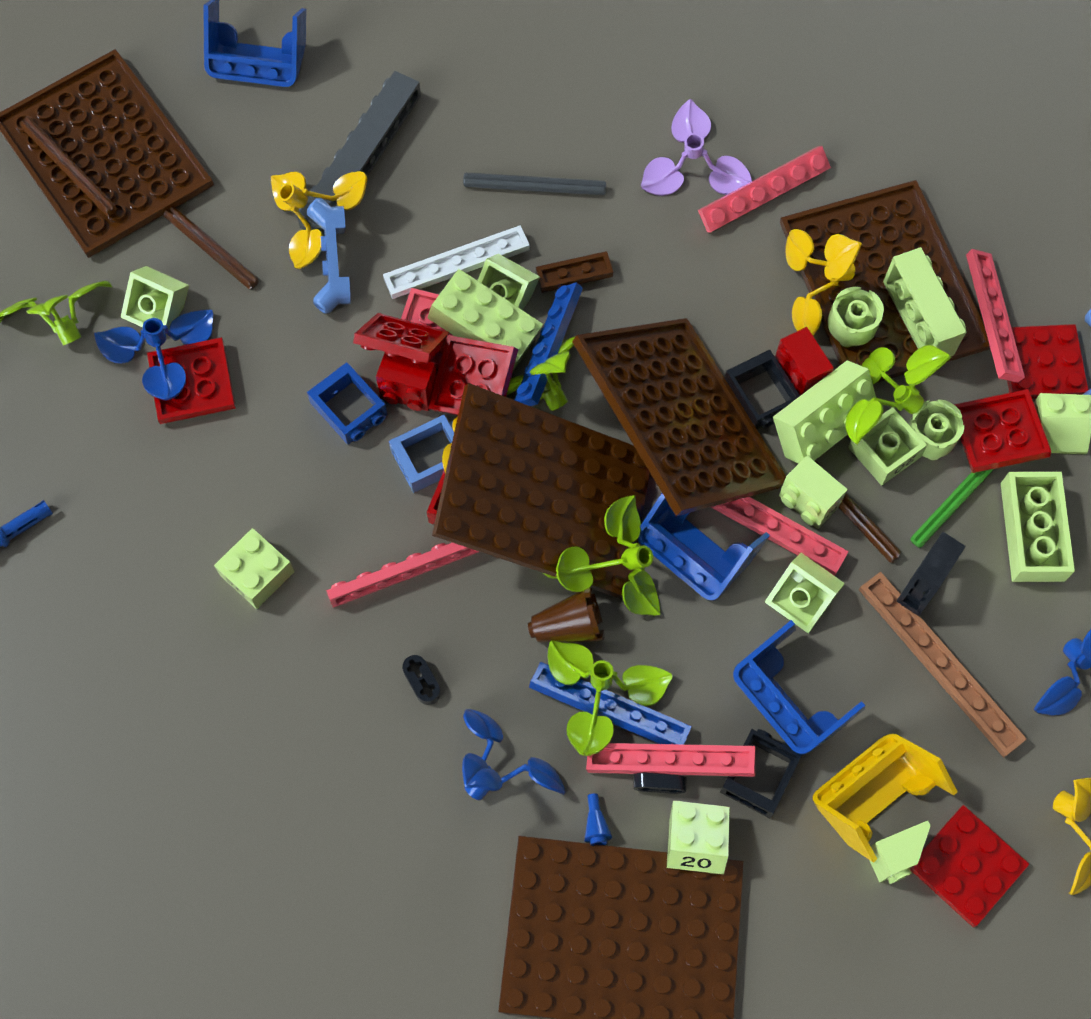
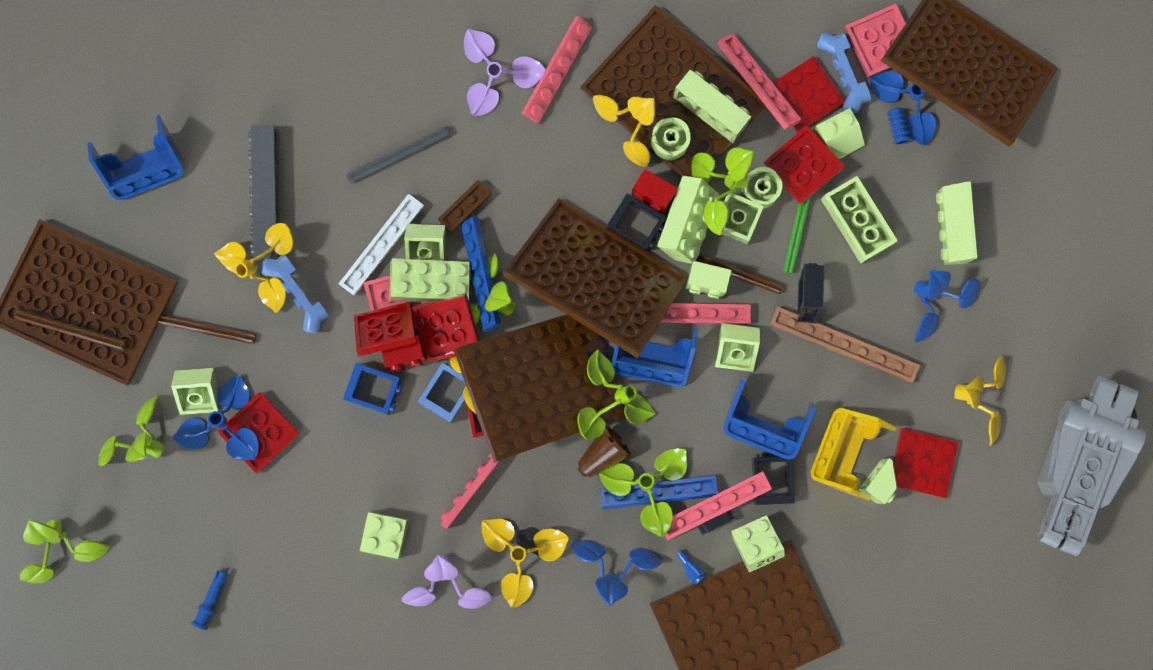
camera: 30 degrees left, 15 degrees up
(294, 637) = (443, 570): none -> lavender plant
(387, 650) = (550, 547): none -> yellow plant

